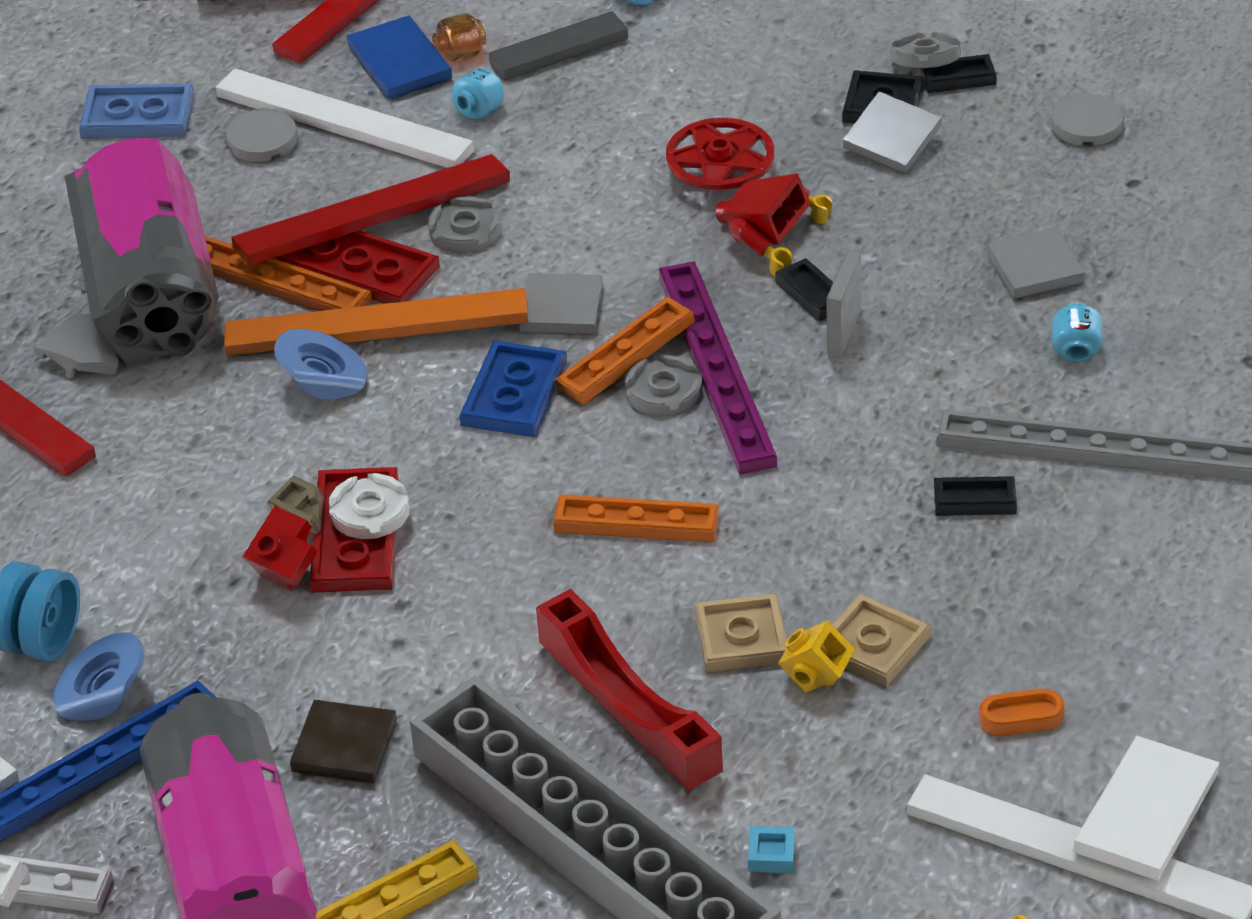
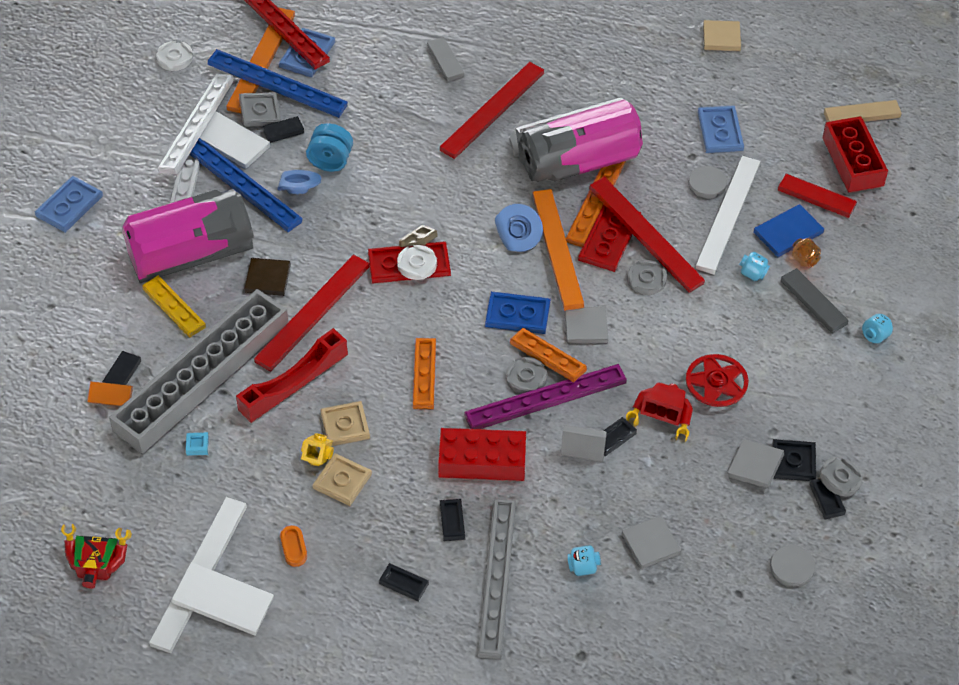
camera: 80 degrees right, 10 degrees up
(281, 548) = (375, 231): red brick -> none
(437, 659) = (311, 313): none -> red tile
(844, 440) = (482, 454): none -> red brick
(1106, 564) = (403, 582): none -> black tile

